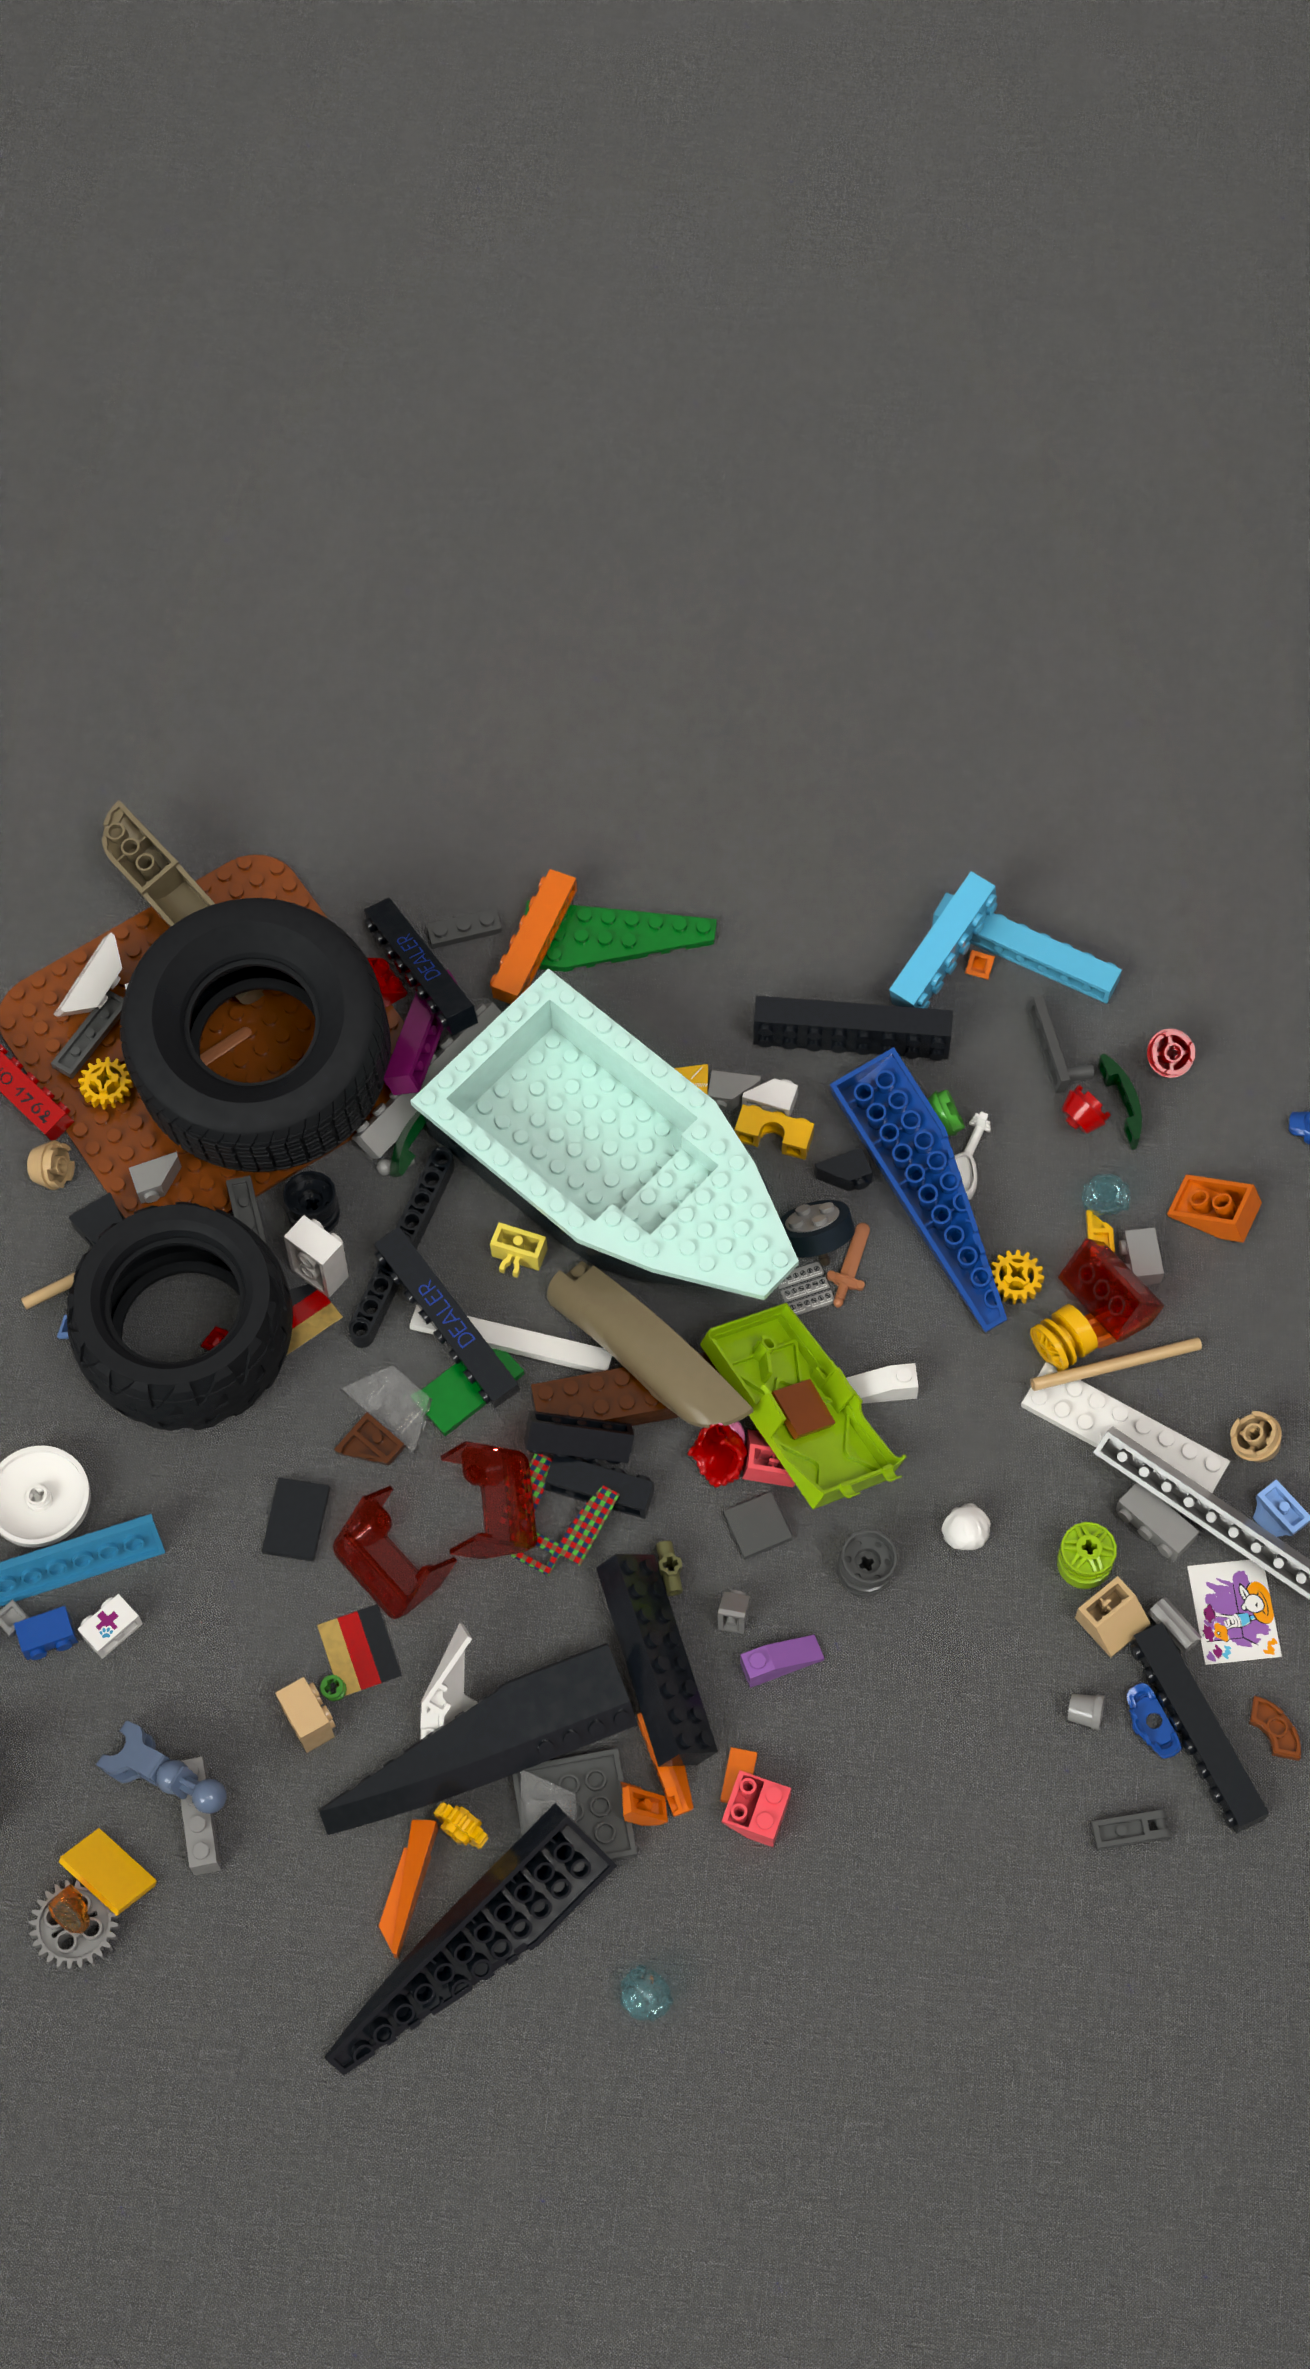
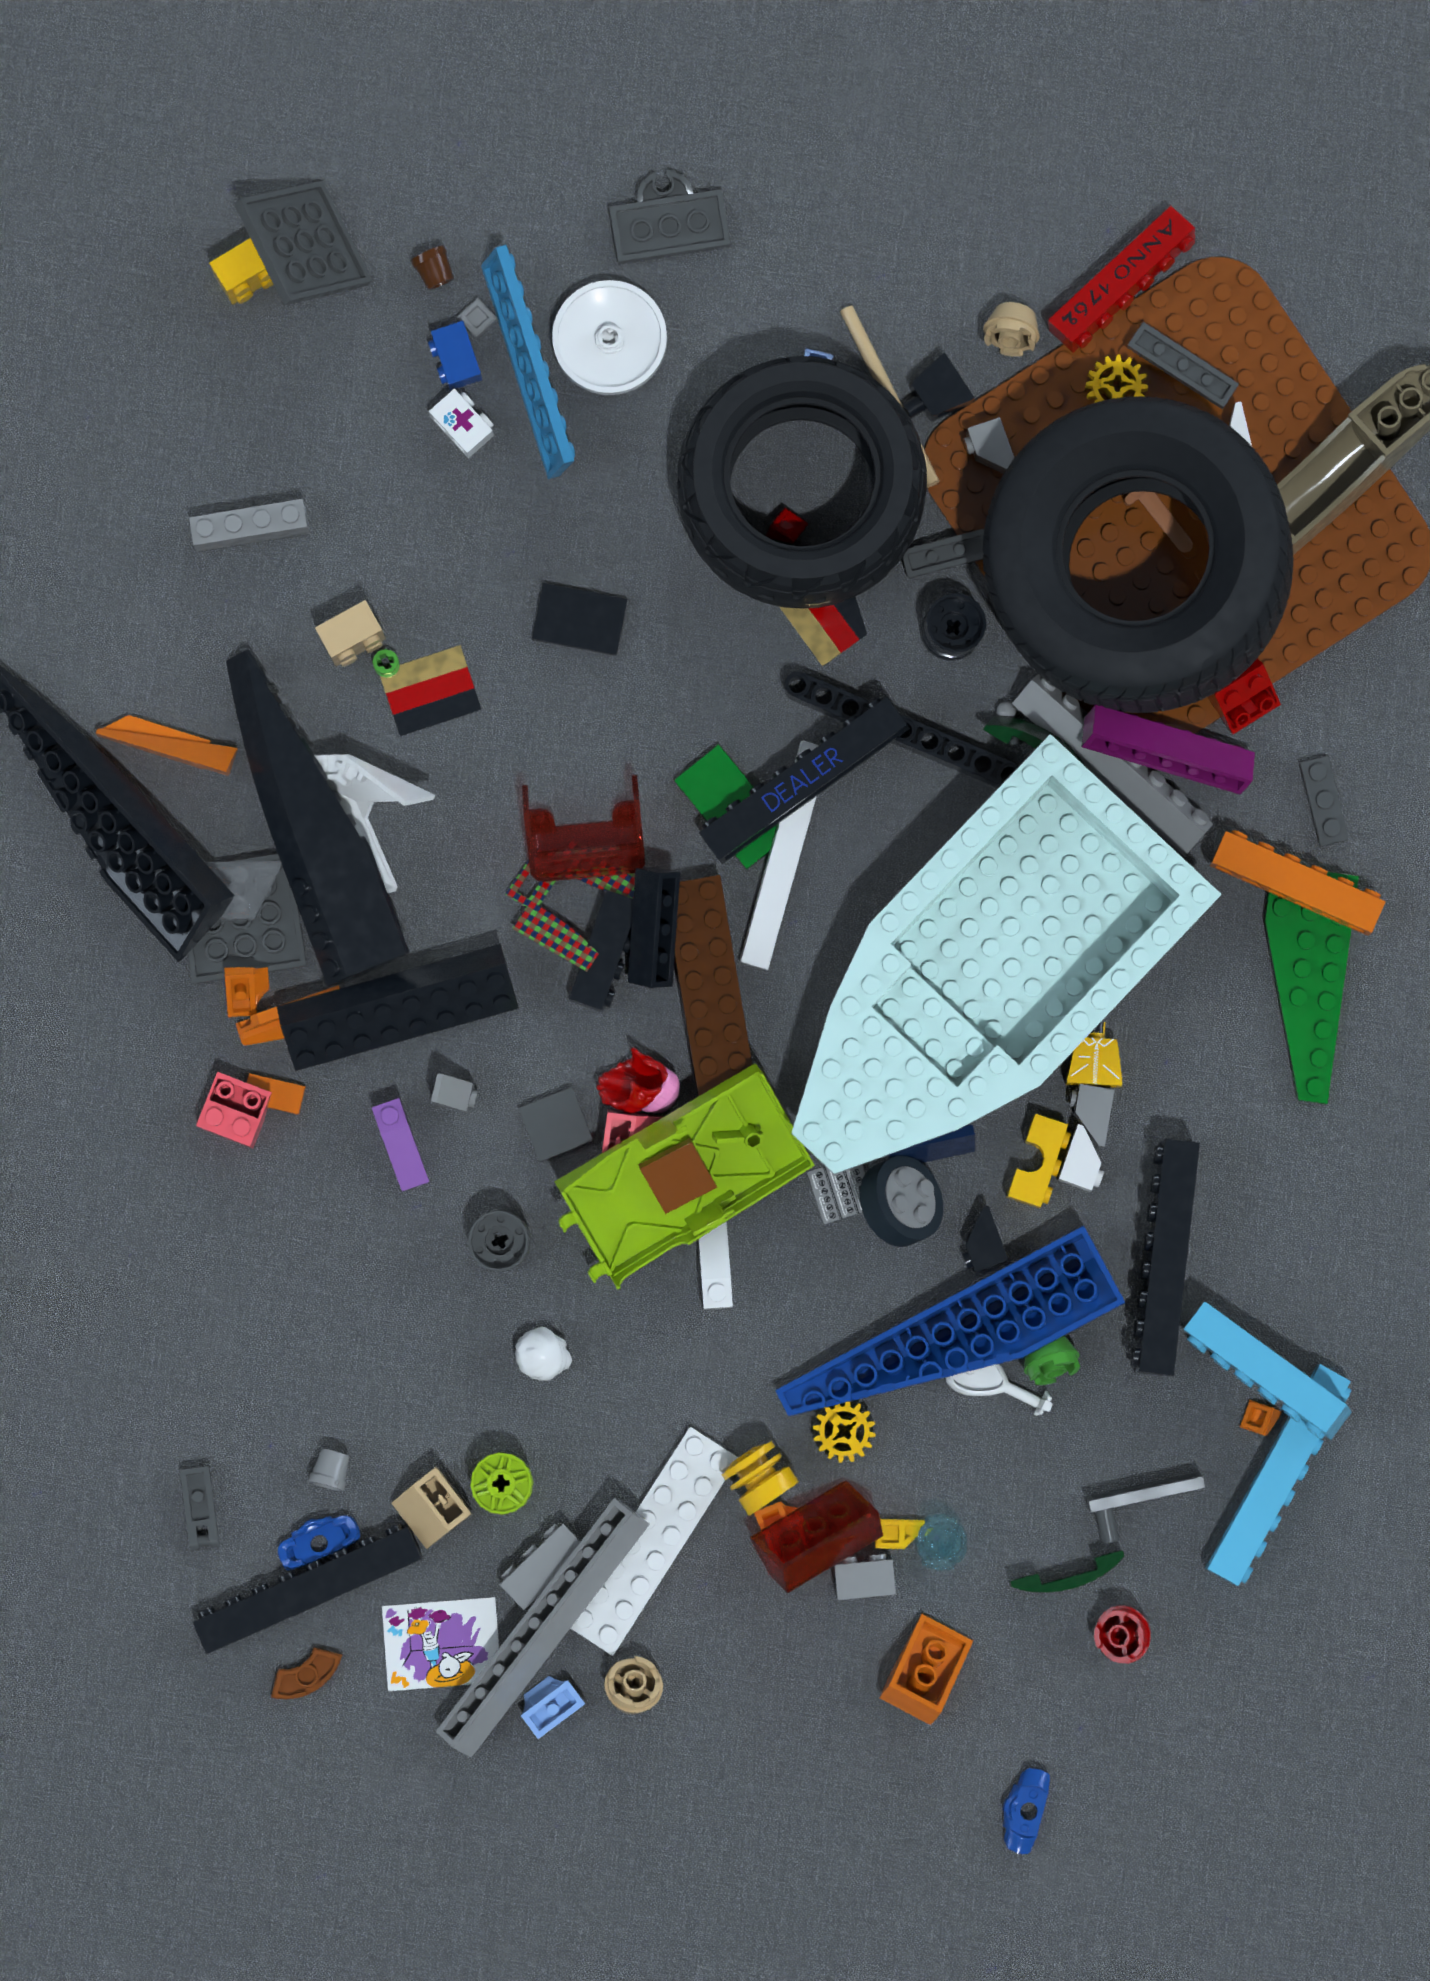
camera: 90 degrees right, 20 degrees up
(70, 1910) = (146, 397): clear orange rock -> none
(84, 1946) = (163, 391): light grey gear -> none
(94, 980) = (1241, 364): white wedge -> none
(107, 1871) = (193, 433): yellow tile -> none
(173, 1777) = (306, 464): sand blue piece -> none
(316, 1255) = (877, 636): white brick -> none
(371, 1442) = (666, 700): reddish brown wing -> none
(379, 1562) = (521, 715): clear red windscreen -> none
(393, 1403) = (710, 724): clear wing -> none
(420, 967) = (1252, 747): black brick -> none
(461, 1825) = (224, 798): yellow gear -> none
(517, 1247) = (893, 862): light yellow brick -> none
(645, 1994) = (45, 988): clear light blue hair -> none
(646, 1347) = (752, 1002): dark tan slope -> none
(667, 1558) = (522, 1022): olive axle -> none
(846, 1278) = (852, 1237): nougat sword -> none
(1084, 1111) = (1050, 1525): red cone -> none
(1116, 1364) = (731, 1537): tan piece -> none
(1176, 1625) = (423, 1575): light grey axle -> none

